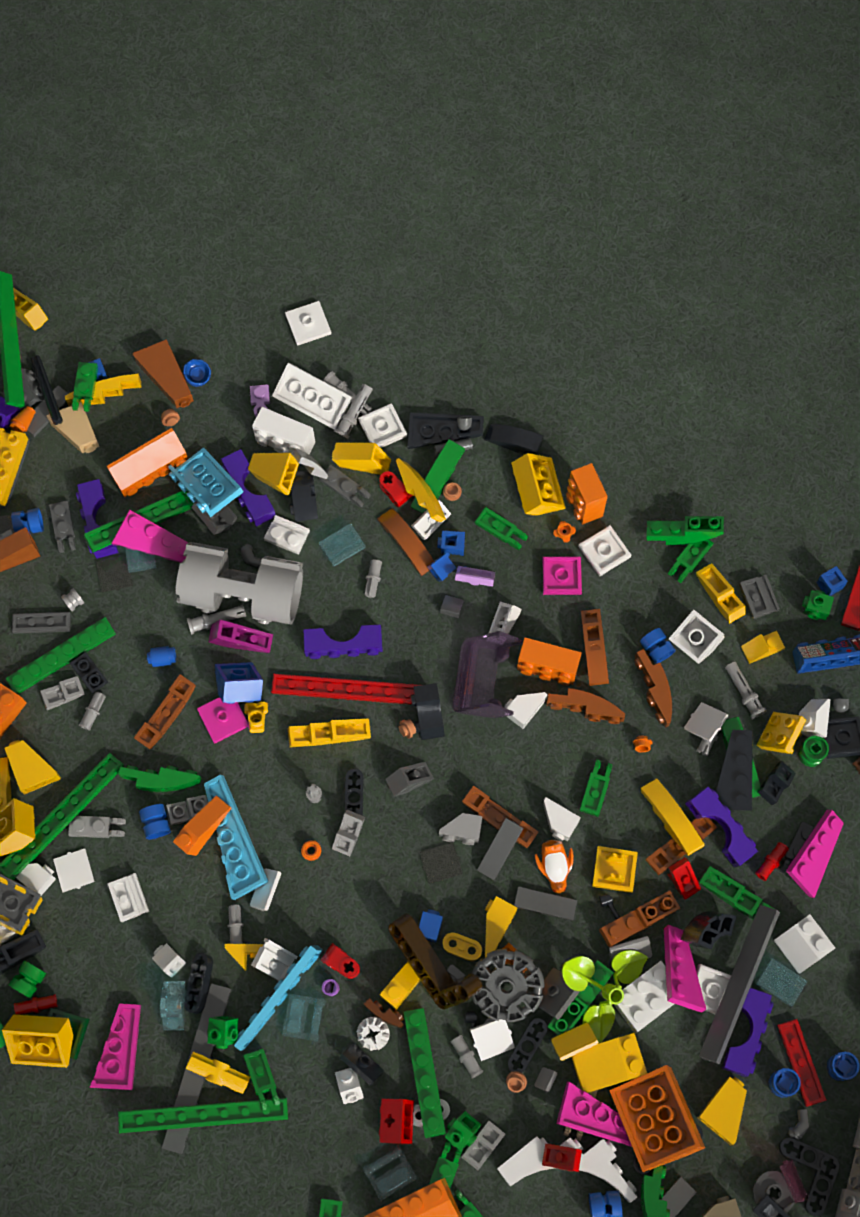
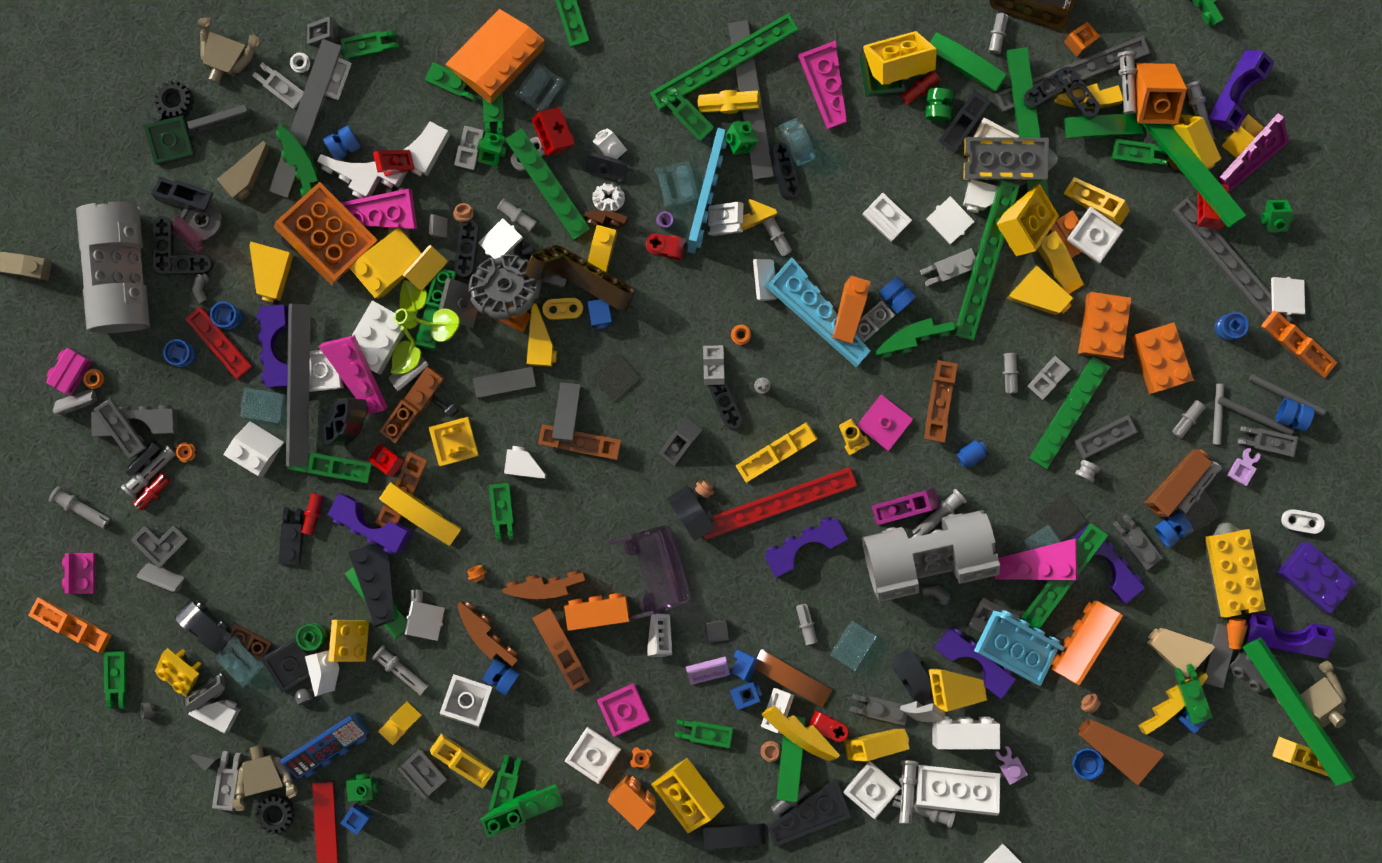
camera: 160 degrees right, 15 degrees up
(46, 390) = (1230, 675): black axle -> none
(89, 672) = (1033, 408): black slope -> none
(168, 960) = (822, 177): white slope -> none
(238, 682) = (885, 460): blue slope -> none
(286, 534) = (913, 632): white plate -> none
(464, 422) = (790, 829): dark grey hinge -> none
(464, 828) = (609, 417): light grey slope -> none
(525, 707) = (602, 558): white slope -> none
(555, 864) = (510, 420): animal -> none
(776, 782) = (336, 592): black slope -> none
(812, 859) = (274, 537): dark pink wing -> none

